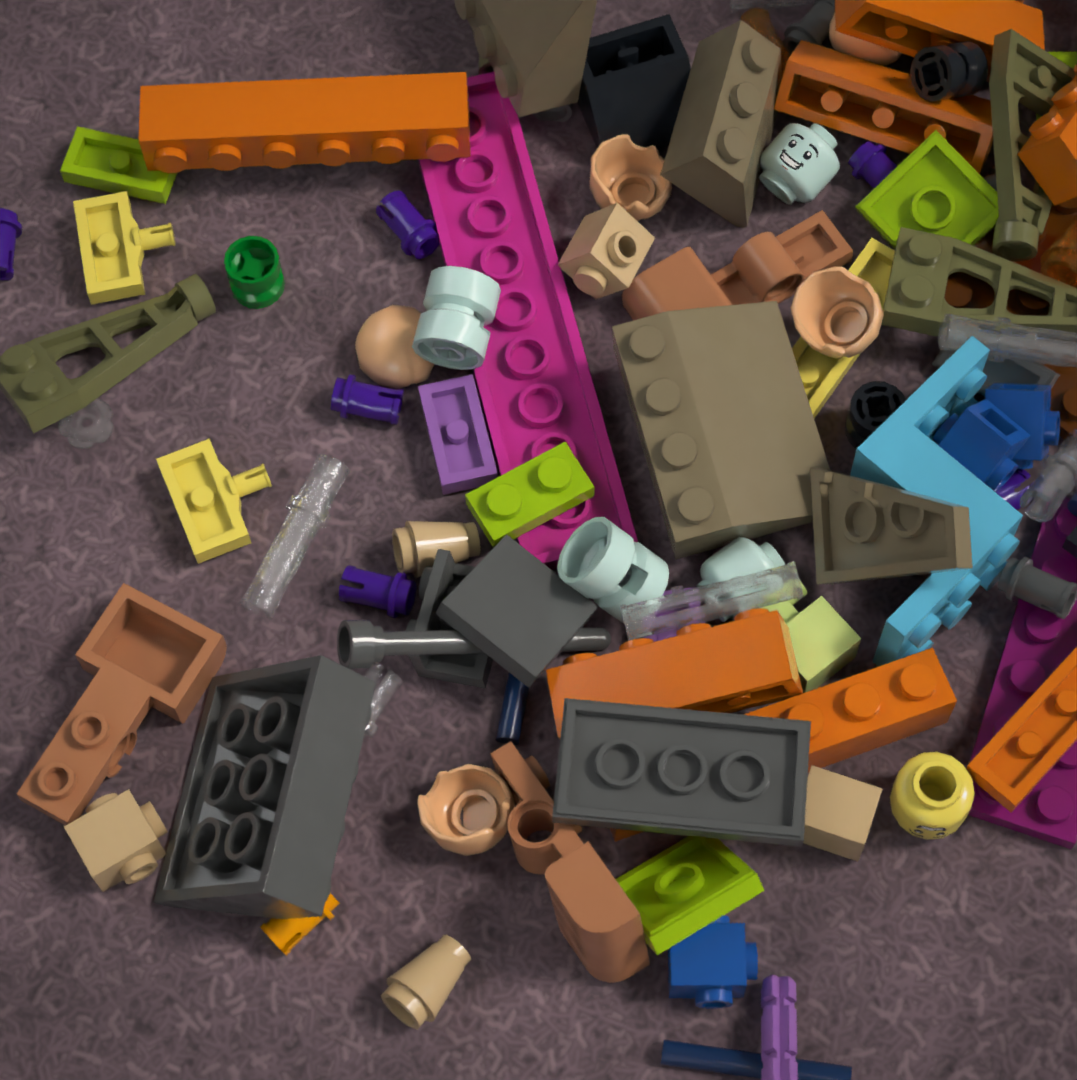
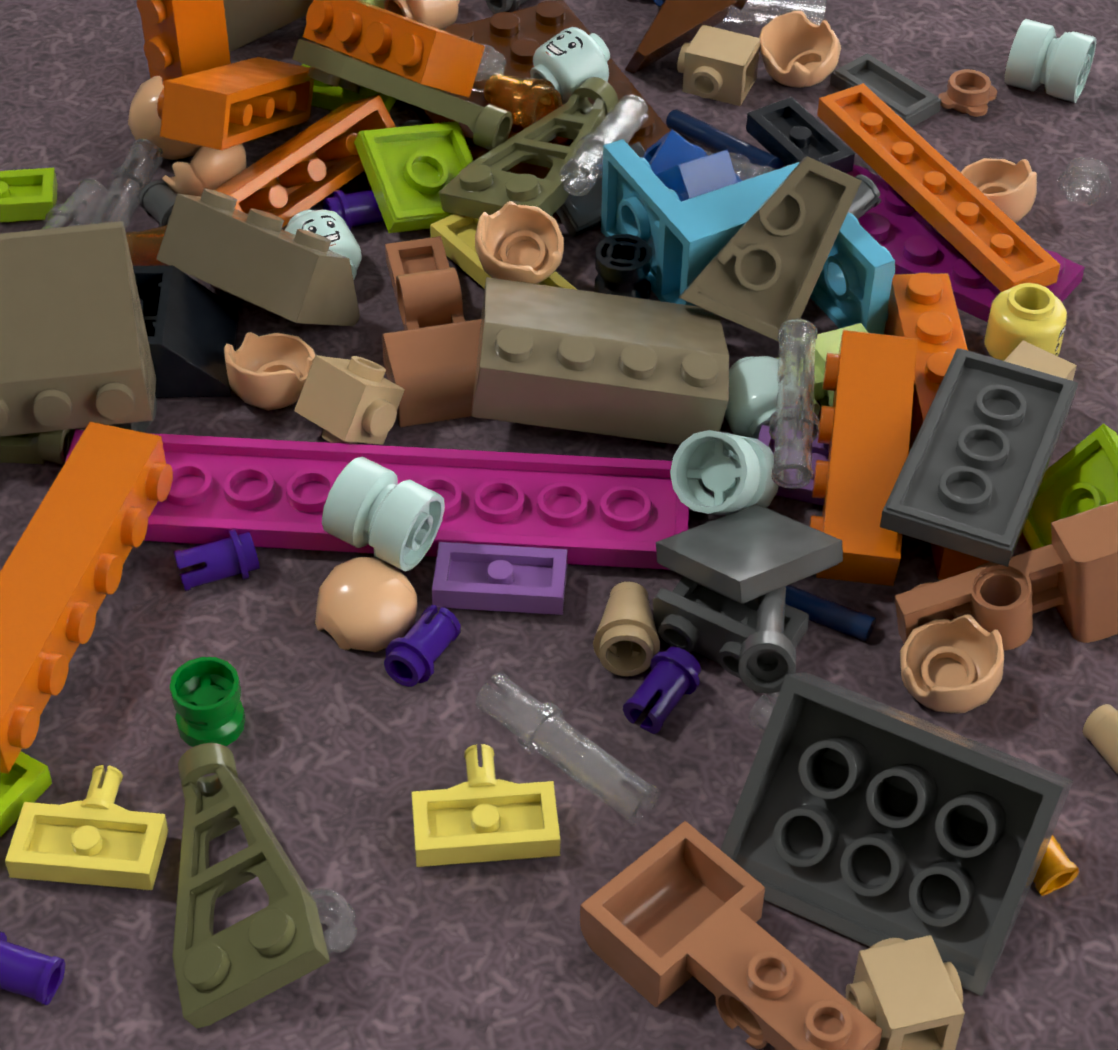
camera: 75 degrees left, 20 degrees down
(530, 494) = (611, 523): lime plate -> none
(949, 71) = (299, 94): black wheel -> none

